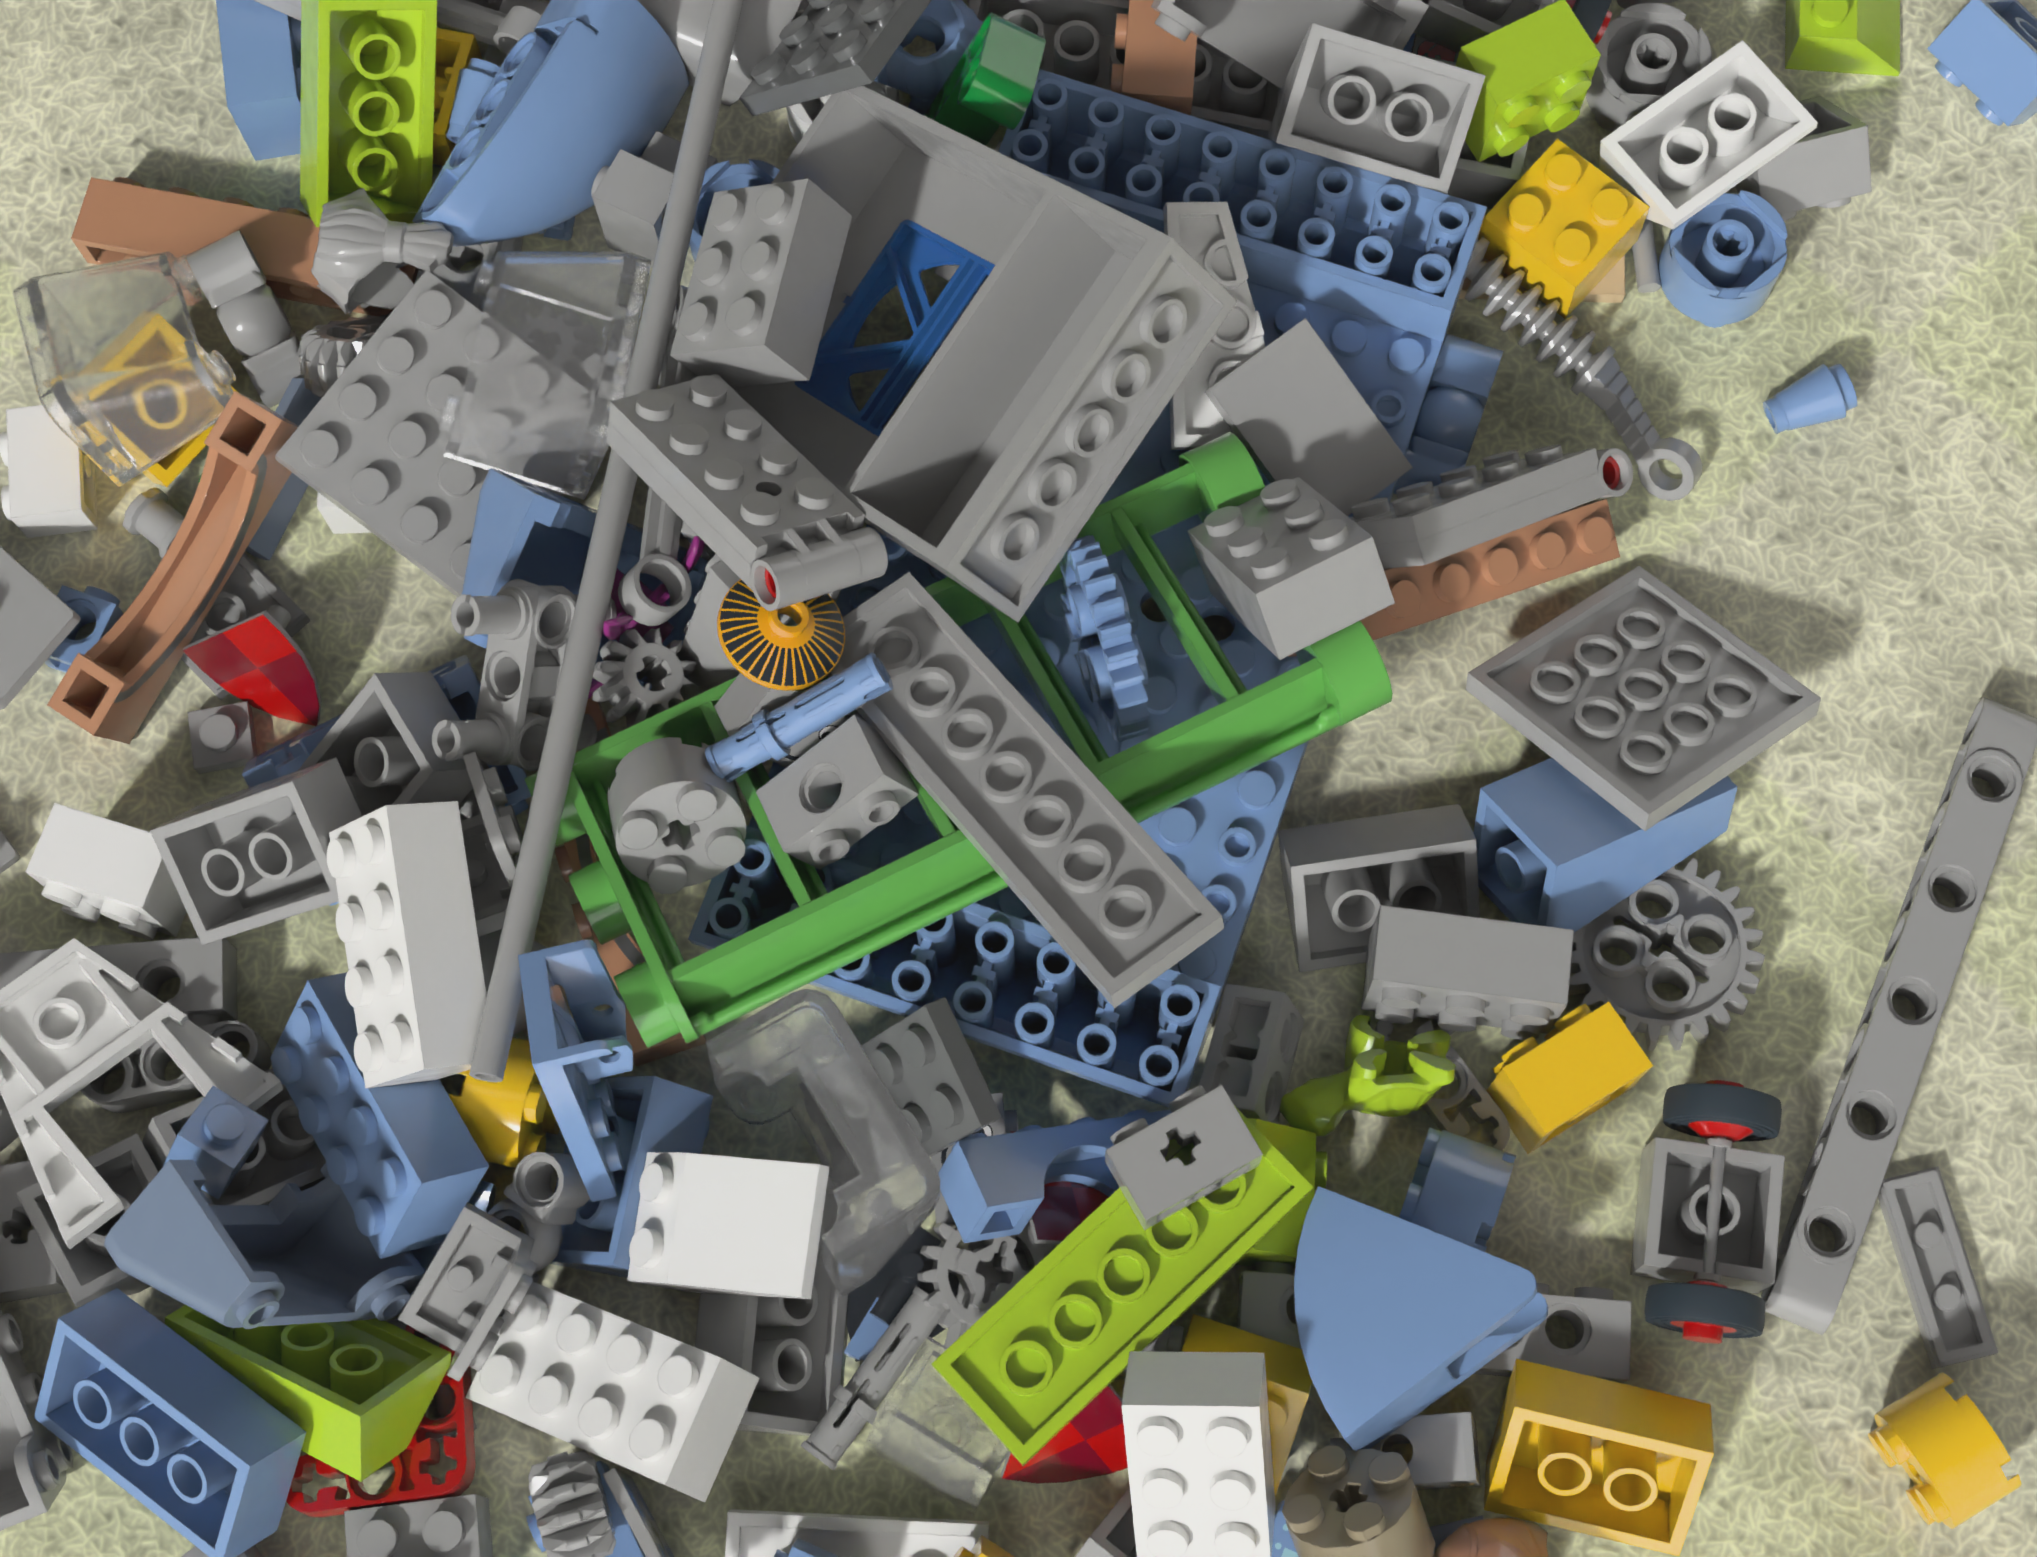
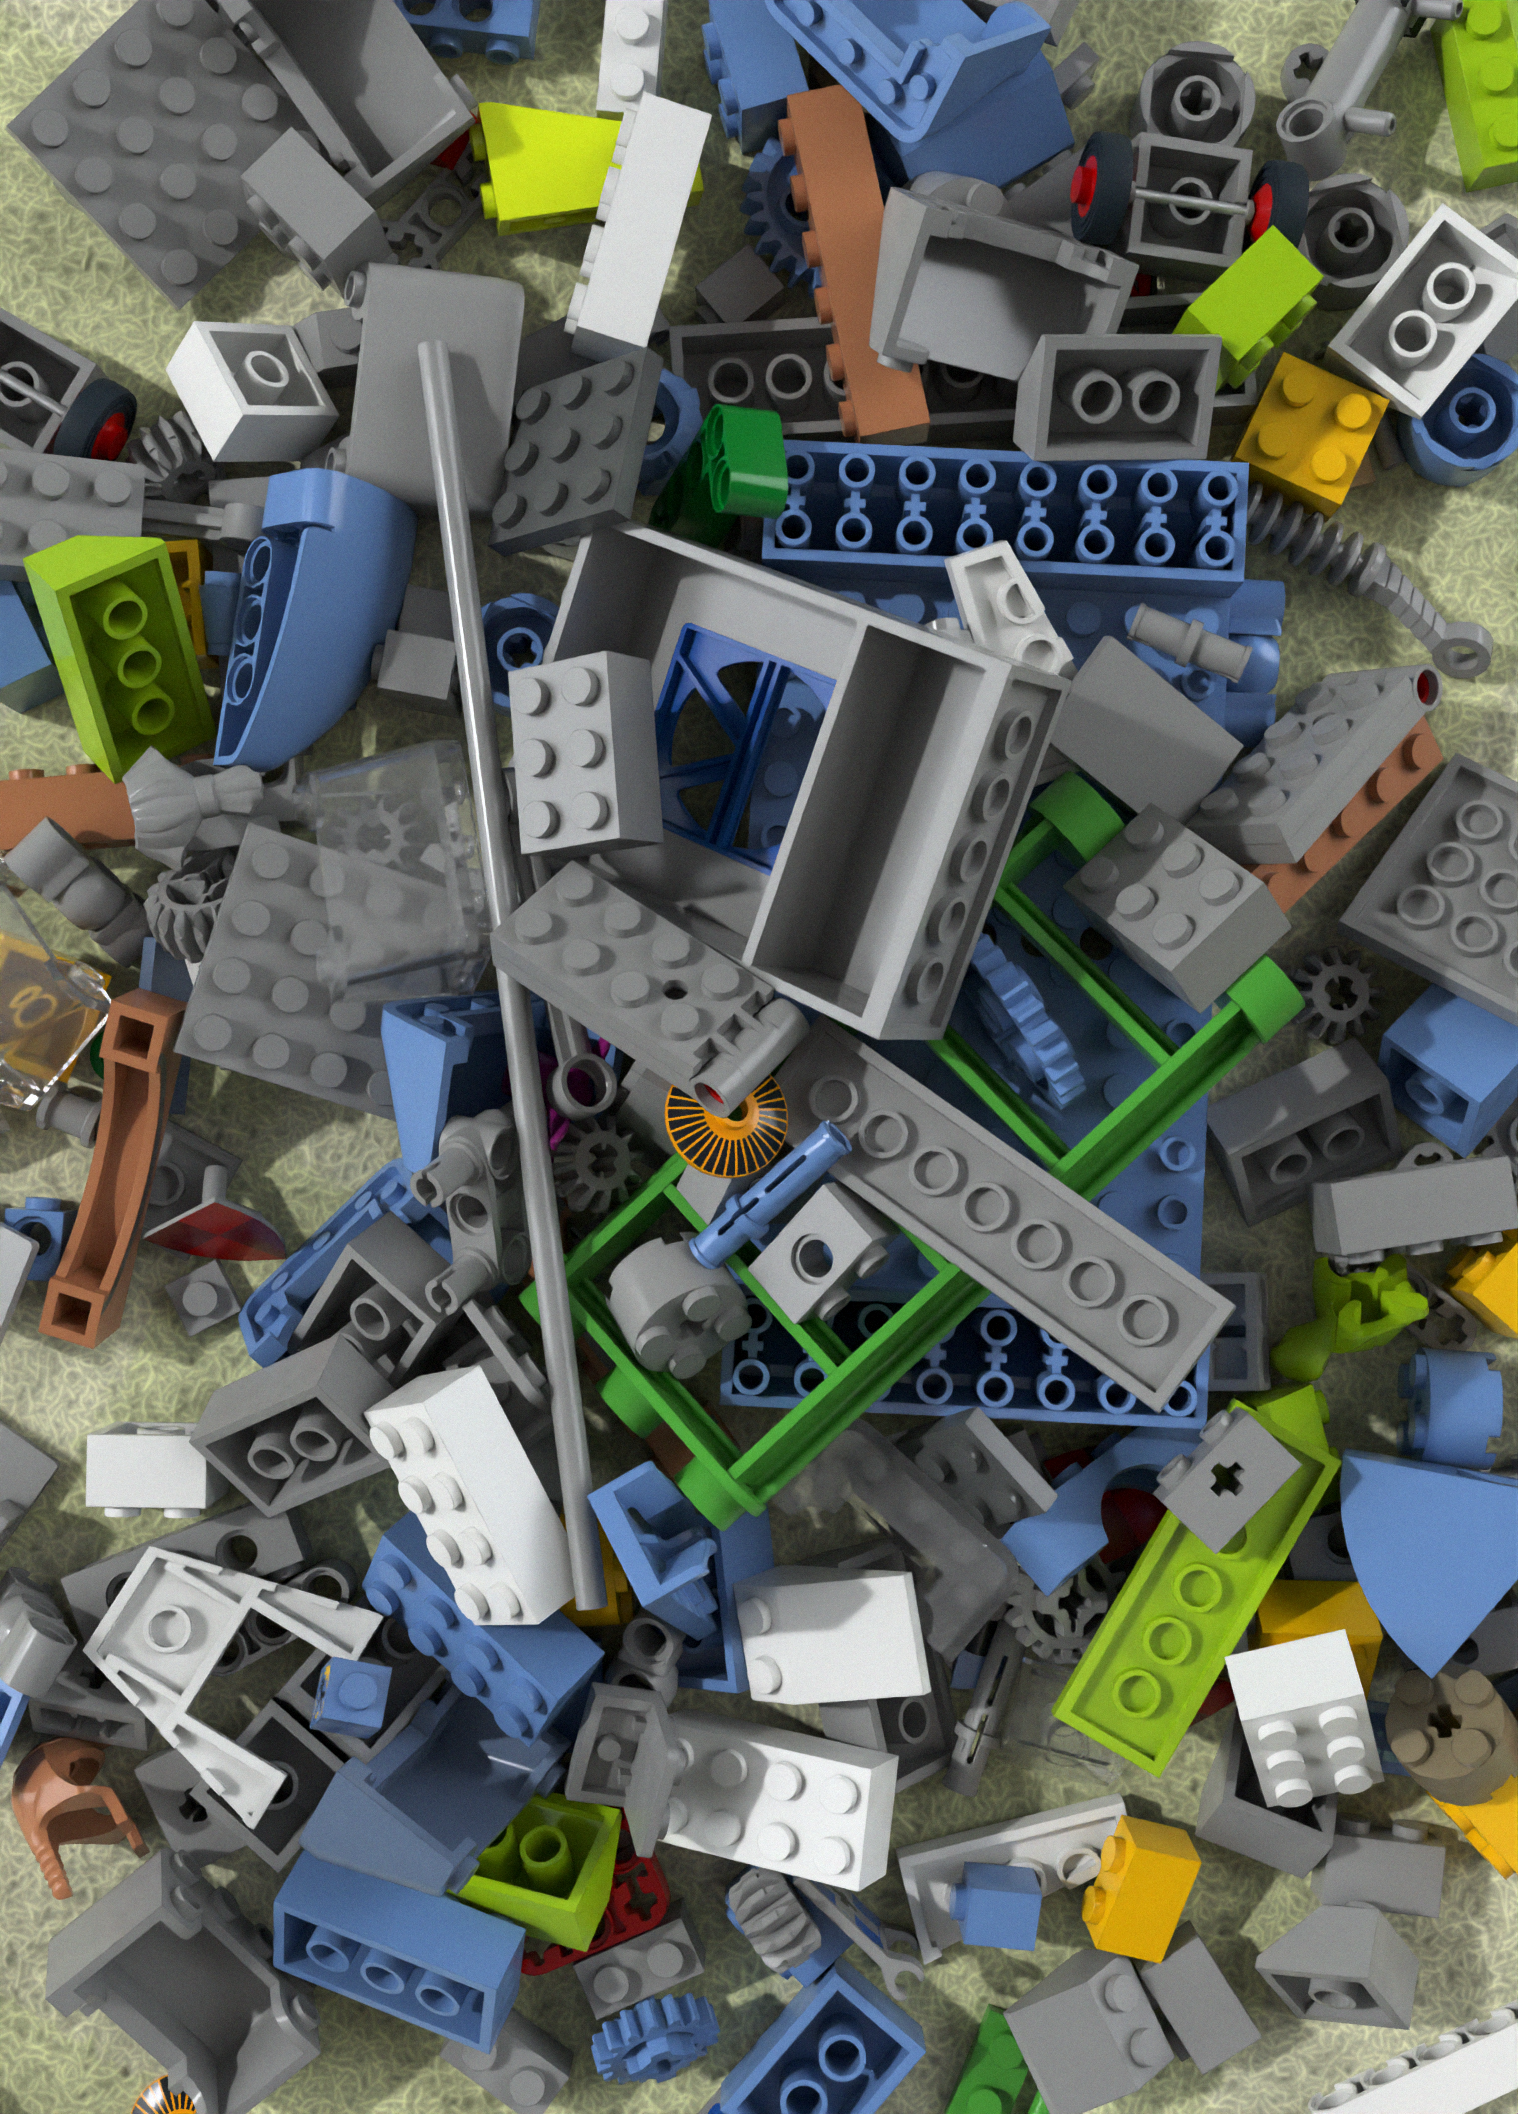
camera: 20 degrees left, 15 degrees up
(1385, 359) = (1189, 643): none -> light grey pin
(1426, 752) = (1353, 987): none -> light grey gear

